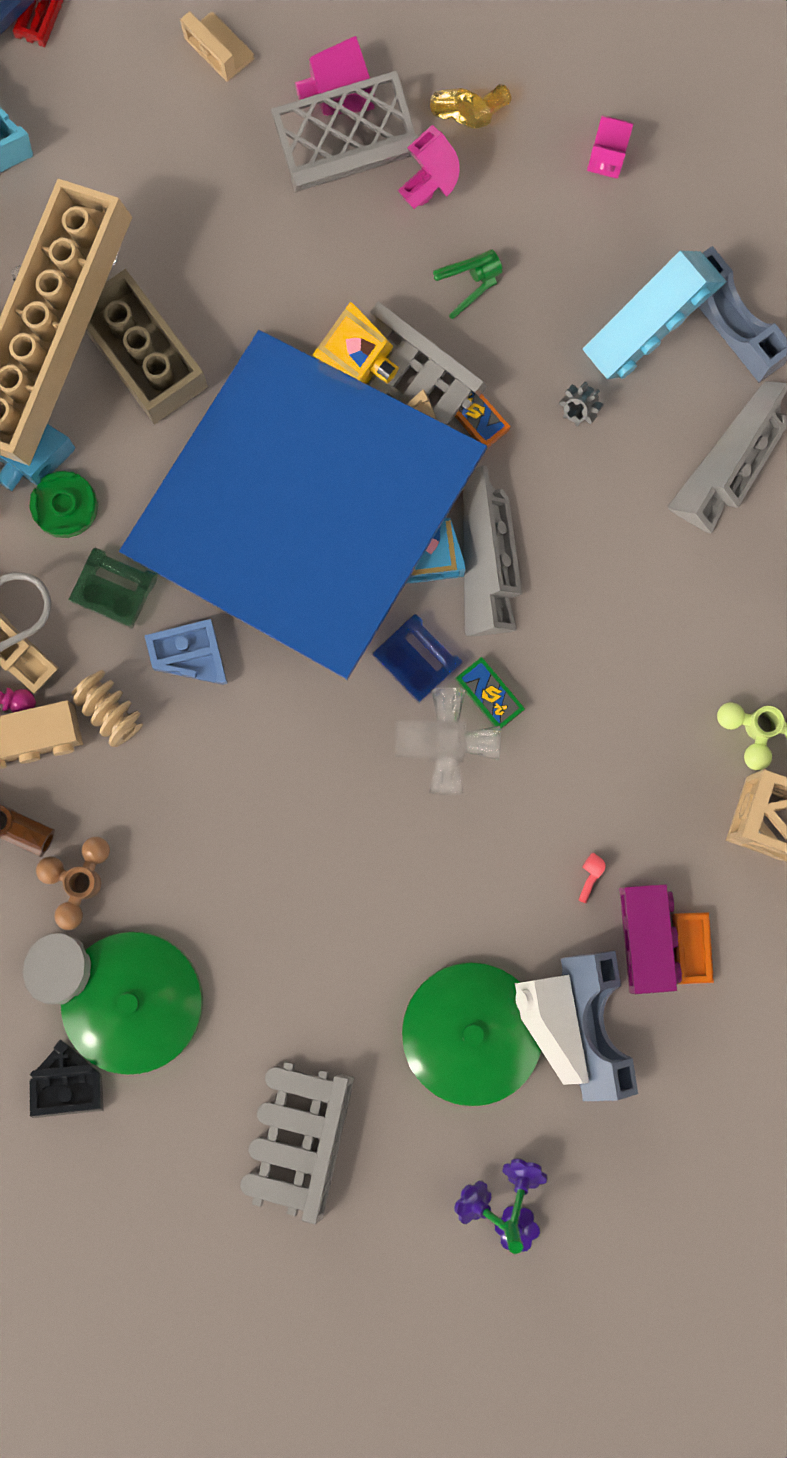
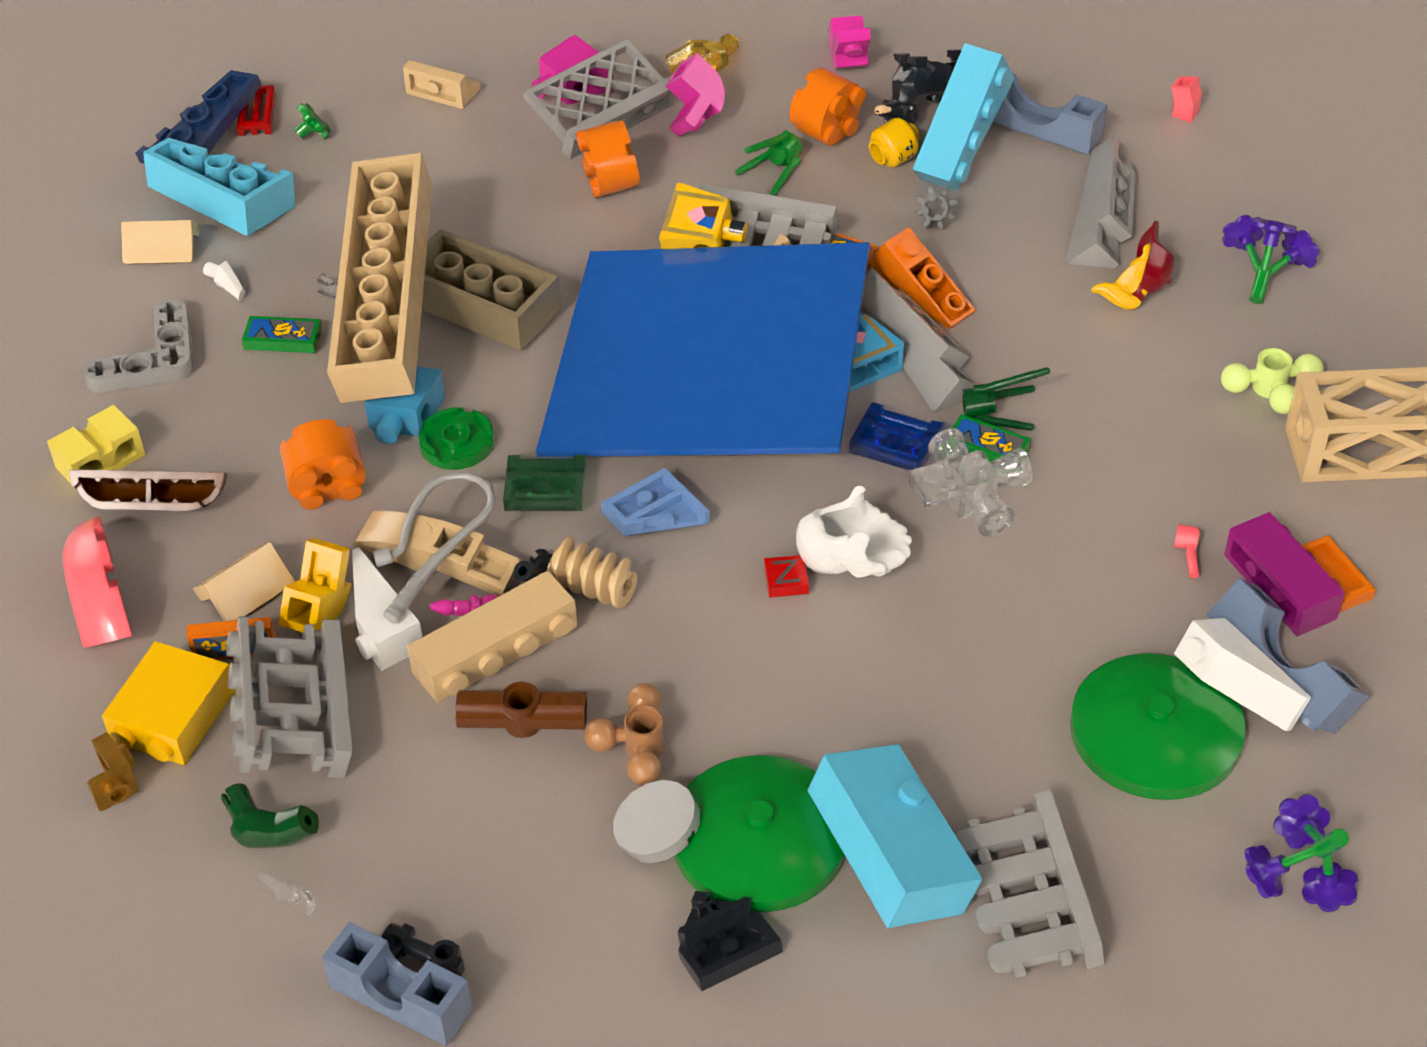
camera: 20 degrees left, 35 degrees down
(65, 686) = (526, 570): none -> black arm
(80, 53) = (311, 122): none -> green plant
(215, 1065) = (894, 835): none -> medium azure brick
(261, 767) = (786, 576): none -> red tile
(316, 224) = (608, 158): none -> orange brick
(323, 766) = (852, 539): none -> white hair
(506, 647) = (981, 398): none -> dark green plant
(525, 488) = (912, 268): none -> orange slope
(542, 236) = (827, 107): none -> orange brick
(587, 300) = (894, 142): none -> yellow head
(653, 234) = (913, 80): none -> black animal
(719, 564) = (1144, 275): none -> hair

